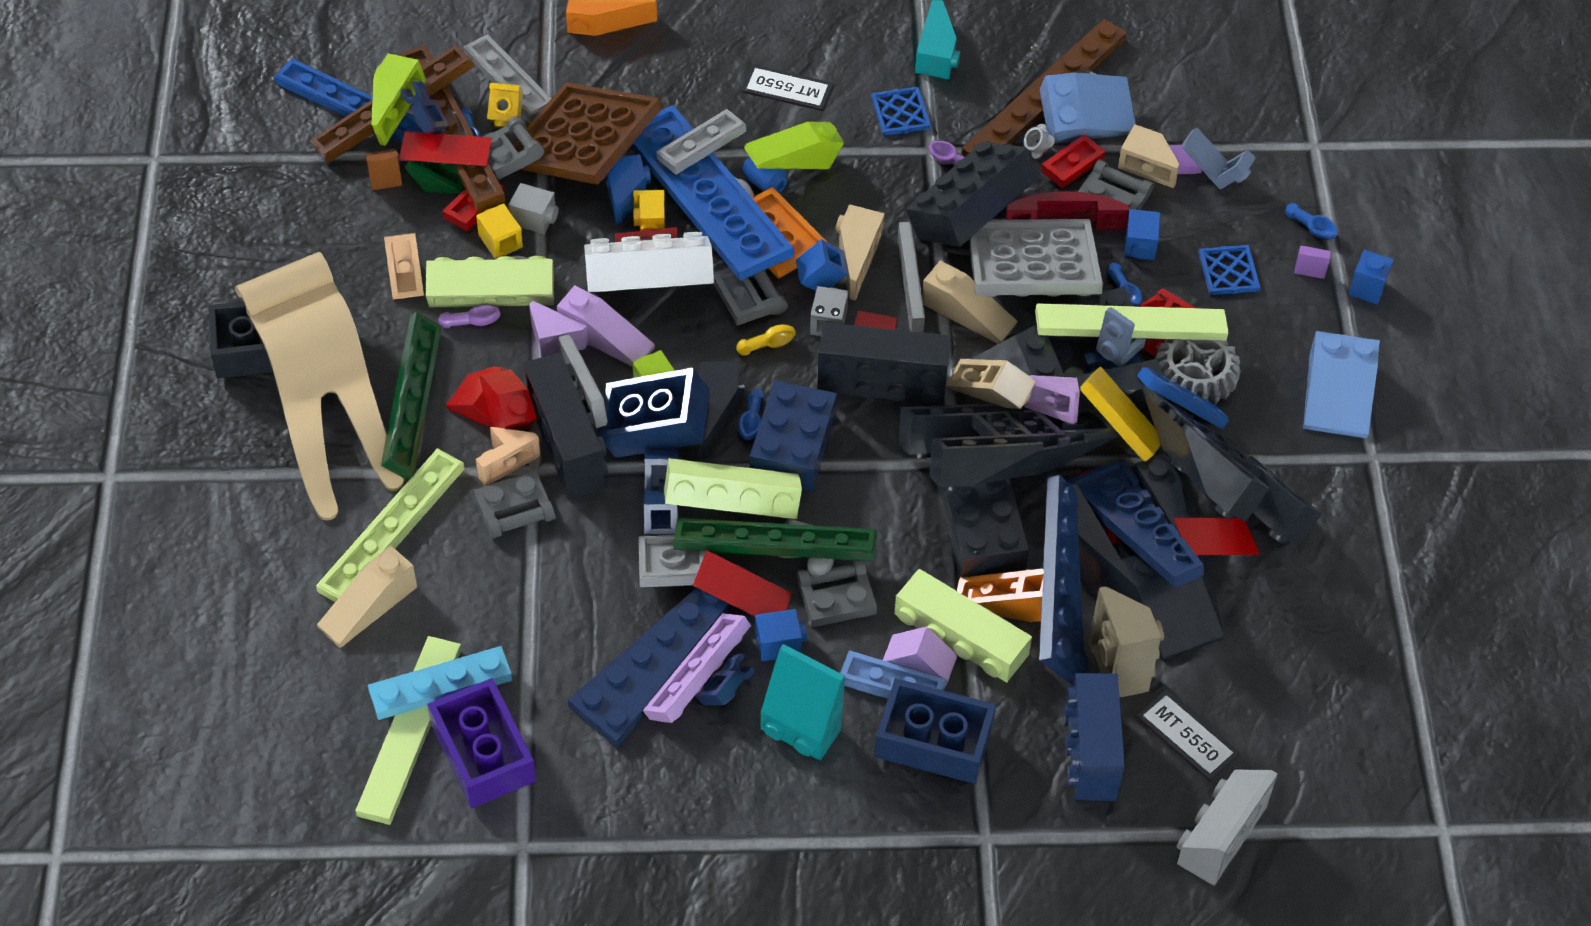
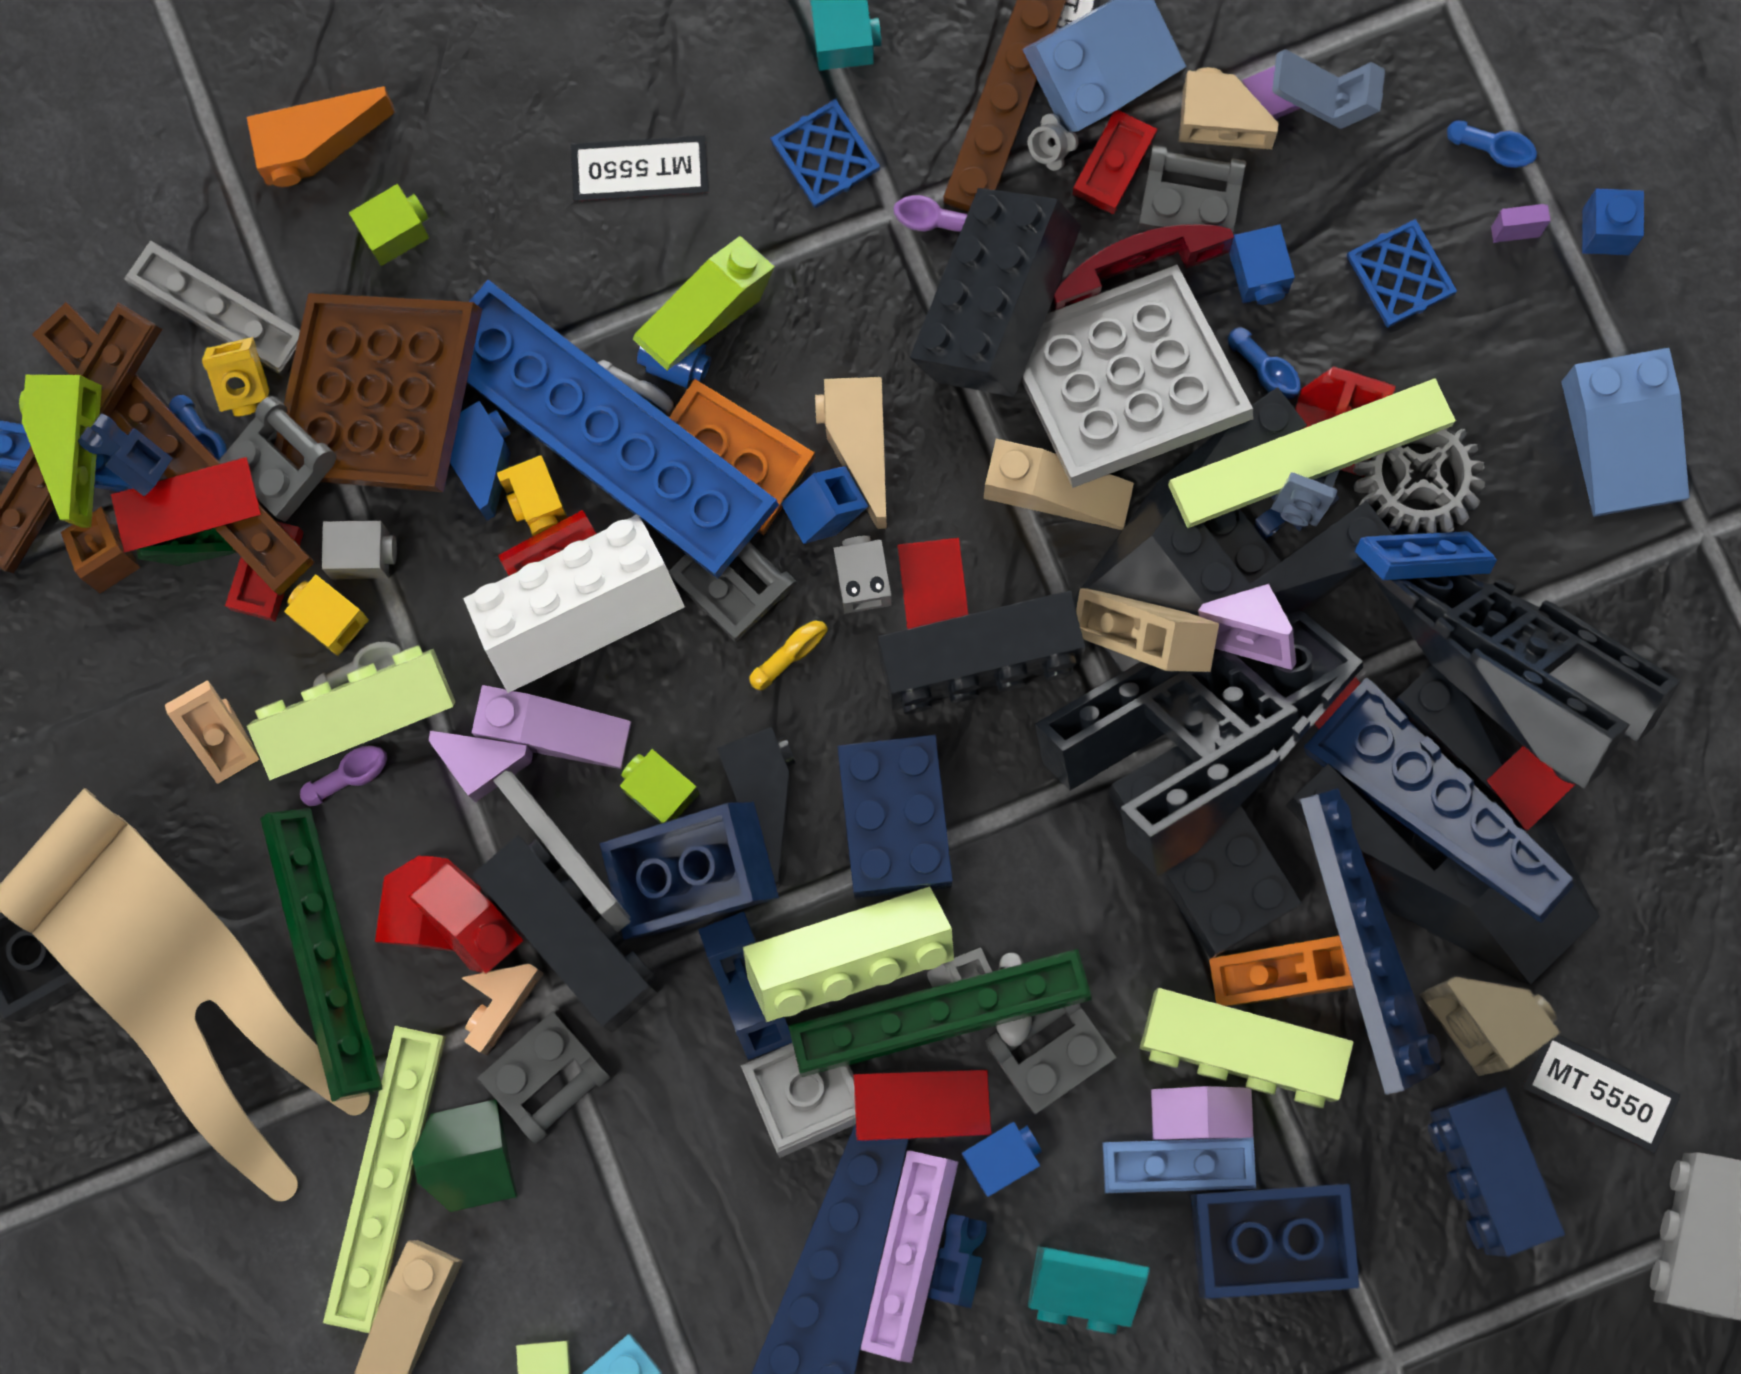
camera: 15 degrees left, 25 degrees up
(445, 532) = (465, 1157): none -> dark green slope
(629, 64) = (391, 223): none -> lime brick
(701, 141) = (561, 343): light grey tile -> none
(750, 420) = (820, 806): blue piece -> none
(910, 277) = (958, 472): light grey tile -> none
(1121, 414) = (1354, 626): yellow tile -> none

